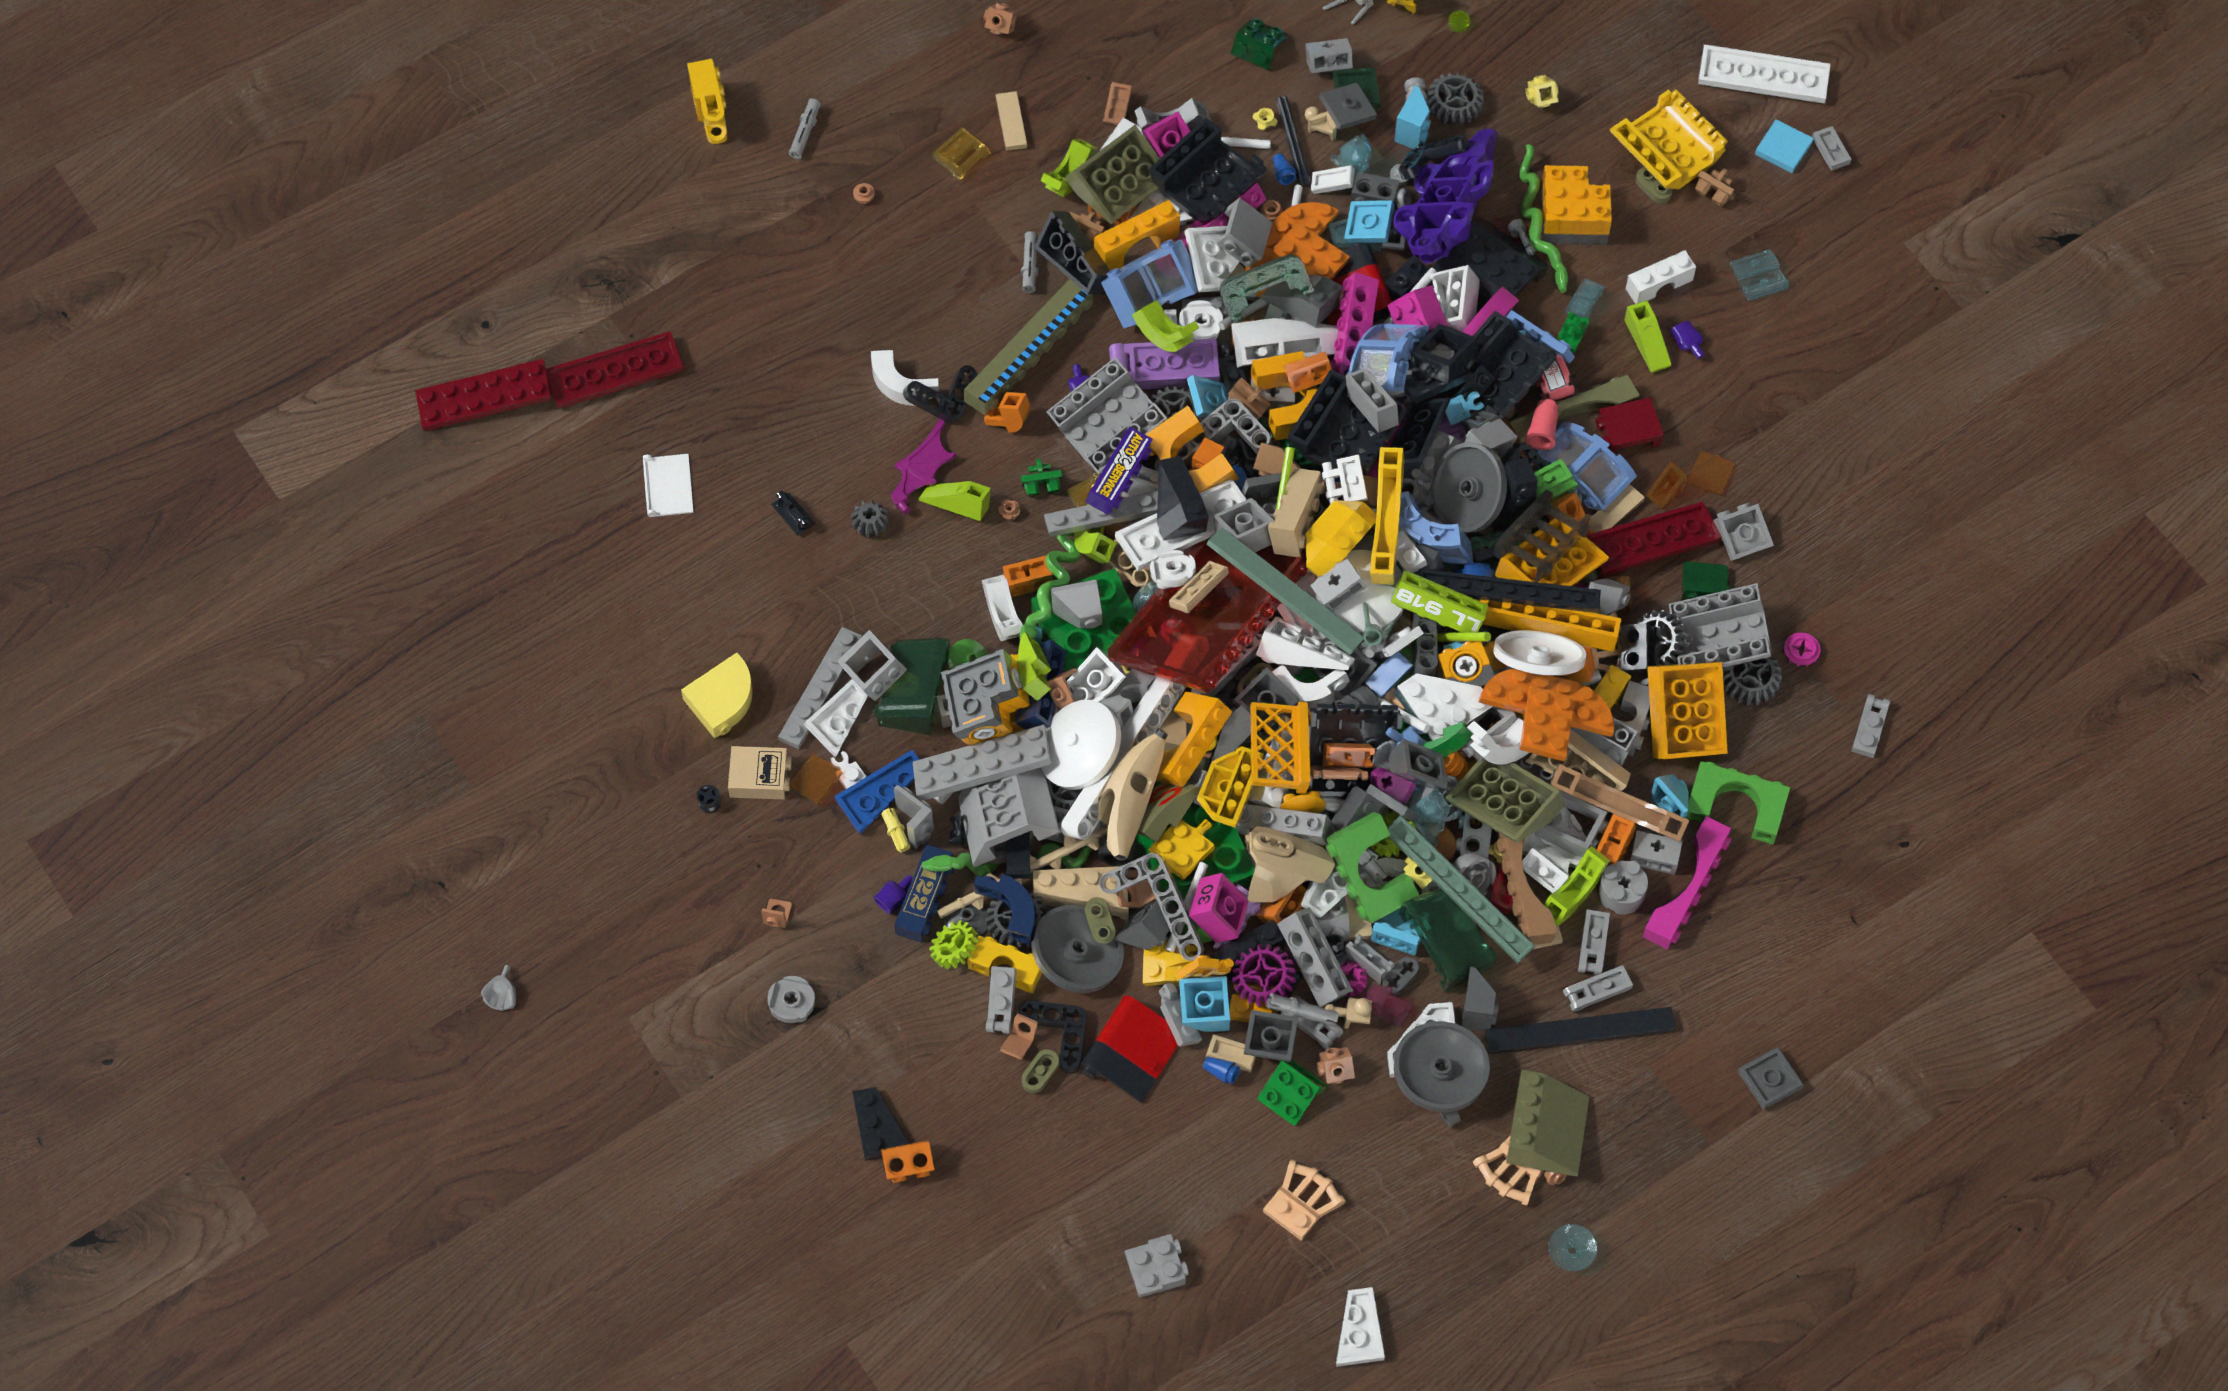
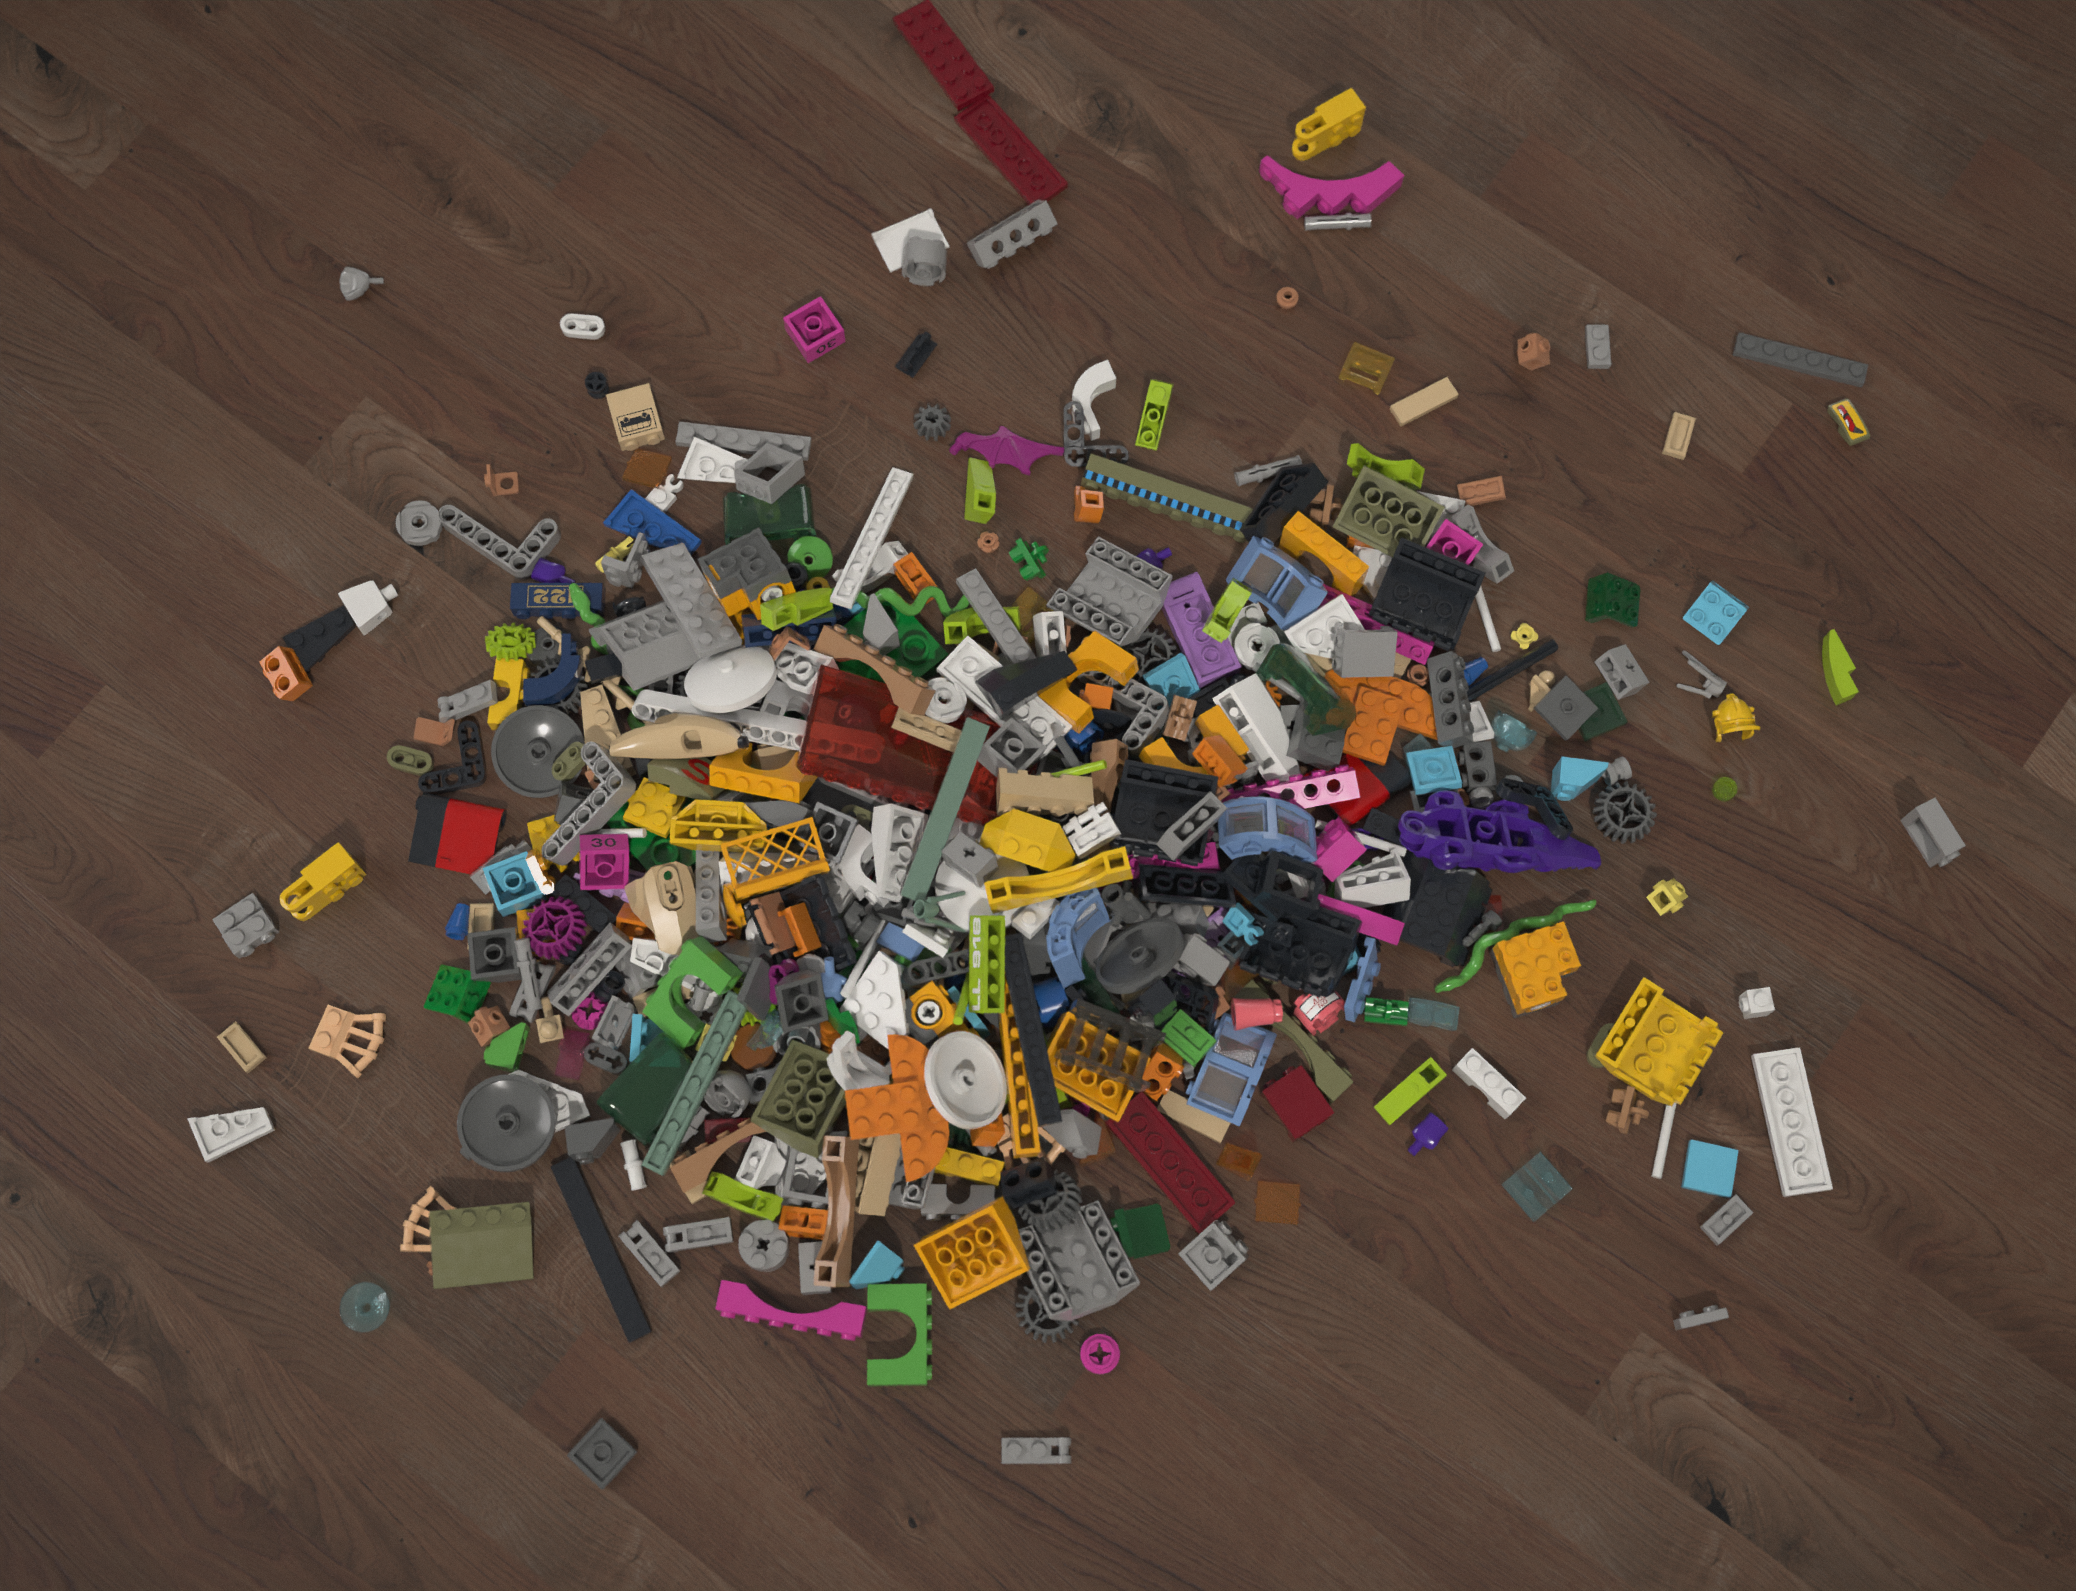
camera: 70 degrees right, 10 degrees up
(639, 796) = (583, 325): none -> white plate
(703, 472) = (924, 261): none -> light grey brick
(704, 392) = (982, 245): none -> light grey brick
(721, 695) = (703, 359): light yellow brick -> none
(734, 588) = (814, 329): none -> dark pink brick
(778, 125) = (1303, 193): none -> dark pink arch
(842, 932) = (498, 545): none -> light grey beam
(861, 1067) = (368, 604): none -> white torso
(935, 333) = (1154, 414): none -> lime slope
(975, 595) = (871, 538): none -> white tile
(1119, 470) = (1040, 618): dark purple brick -> none
(1142, 1173) = (322, 882): none -> yellow brick
(1160, 586) = (906, 690): none -> medium nougat arch
(1276, 187) = (1442, 691): none -> dark grey brick
(1278, 1301) = (241, 1047): none -> tan tile
(1366, 1057) = (507, 1049): none -> bright green slope
(1510, 979) = (633, 1165): none -> white pin
(1656, 61) = (1756, 1003): none -> white brick
(1750, 171) = (1663, 1141): none -> white bar
(1906, 201) = (1710, 1314): none -> light grey plate

